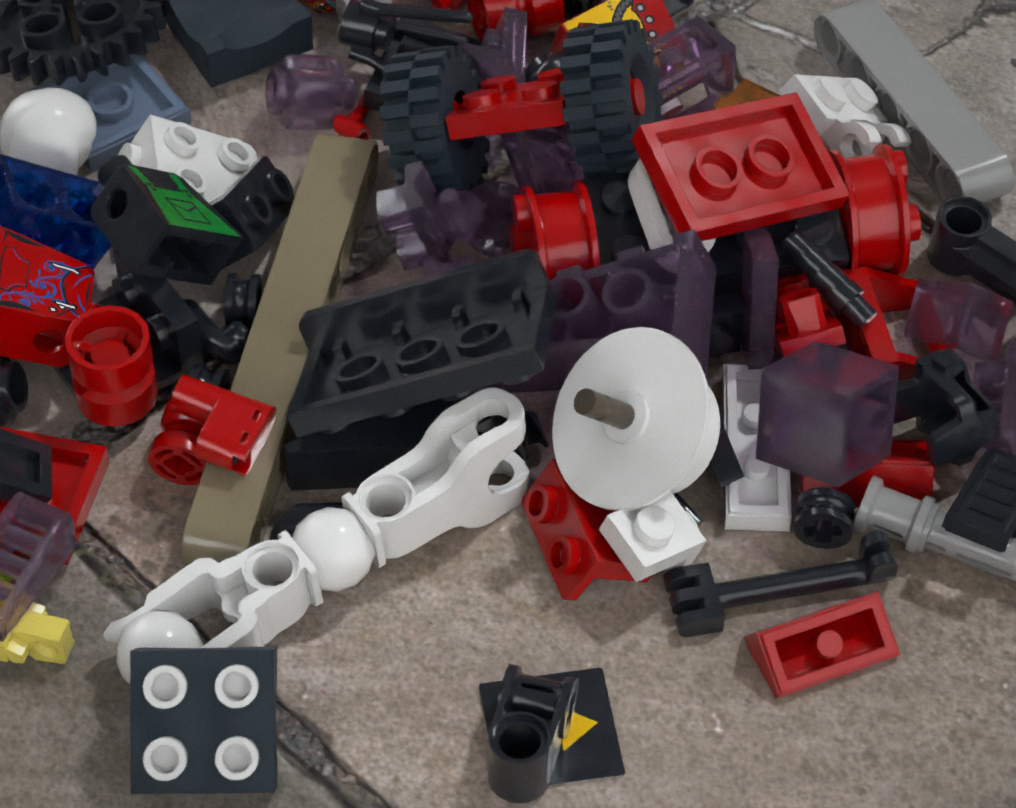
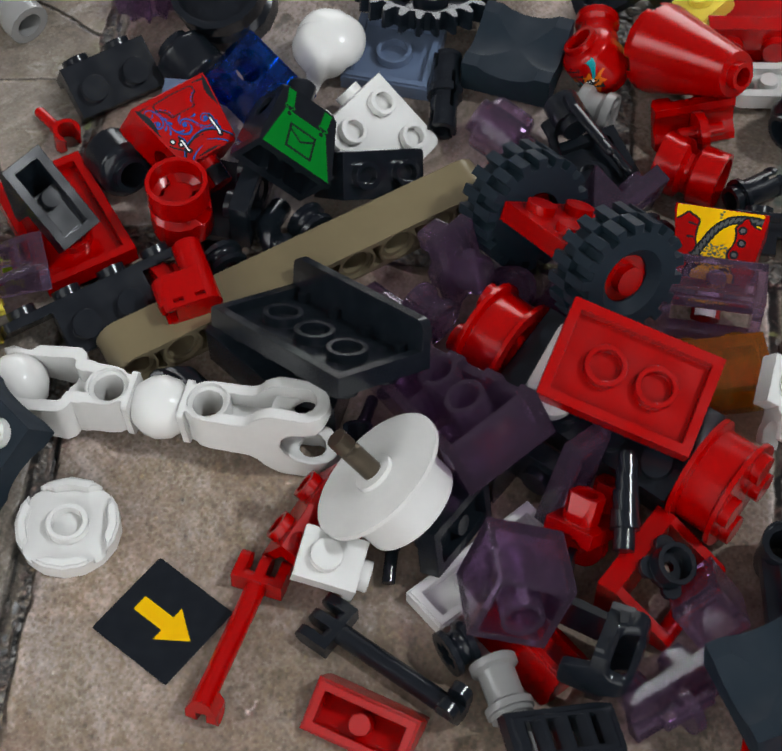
camera: 50 degrees right, 5 degrees up
(138, 526) = (87, 311): none -> black bracket
(210, 98) = (445, 93): none -> black pin
(366, 733) = (68, 527): none -> white tile
(531, 723) = (137, 603): black piece -> none
(601, 625) = (255, 585): none -> red hinge
(908, 307) = (680, 563): none -> black plate

